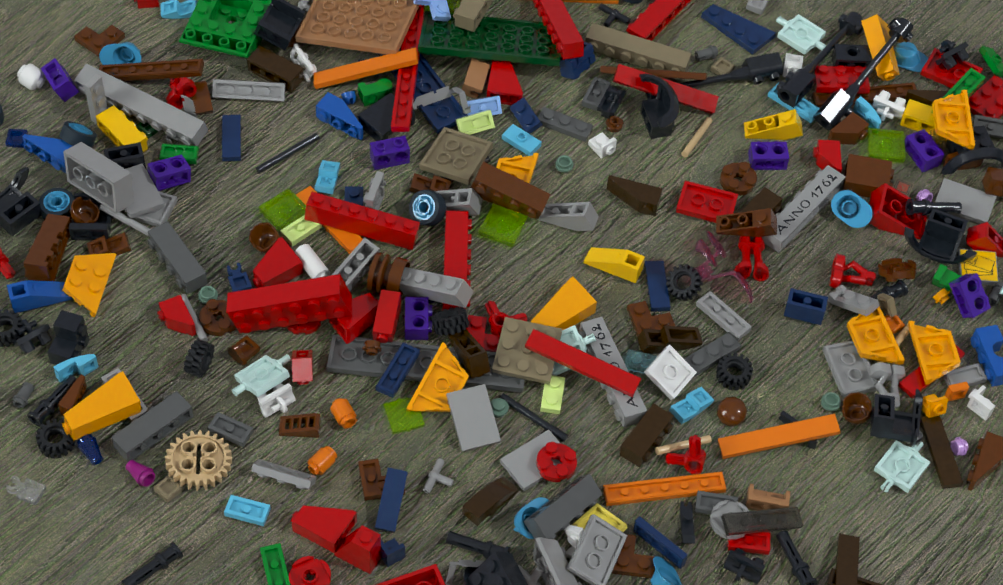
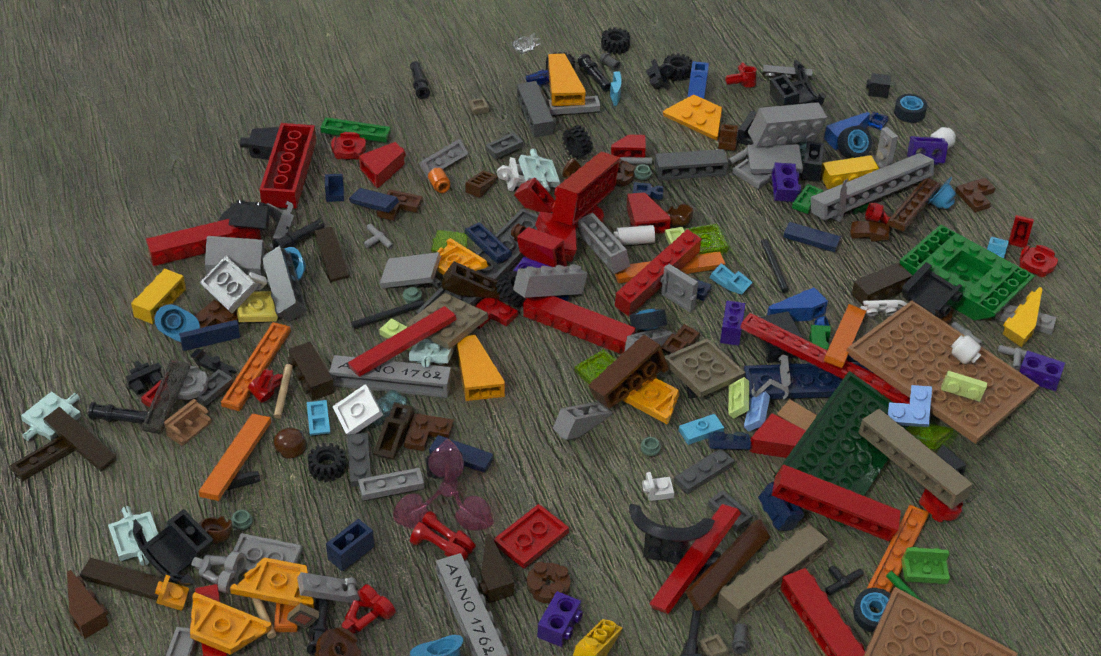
camera: 120 degrees right, 10 degrees down
(48, 249) = (733, 94): reddish brown wedge -> none
(70, 337) = (642, 86): black brick -> none
(73, 395) = (589, 80): reddish brown slope -> none
(142, 474) = (499, 94): magenta cone -> none
(178, 459) = (488, 121): tan gear -> none
(247, 510) = (427, 133): medium azure plate -> none
(248, 90) = (863, 260): light grey plate -> none
(343, 413) = (473, 204): orange brick -> none
(361, 549) = (342, 162): red slope -> none
(383, 273) = (592, 260): reddish brown wheel -> none
(497, 318) = (494, 325): red axle -> none
(522, 461) = (346, 299): light grey tile -> none
(556, 451) = (331, 294): red plate -> none
(611, 101) = (704, 507): black hips -> none
(614, 124) = (681, 510): reddish brown plate -> none
(616, 262) = (501, 427): yellow slope -> none
(637, 195) = (574, 481): dark brown slope -> none
(696, 137) = (626, 574): tan bar -> none
(749, 223) = (468, 537): reddish brown slope -> none
(957, 391) = (168, 624): orange tile -> none
(959, 446) = (115, 593): lavender plate -> none
(980, 404) = (140, 635): white bracket -> none

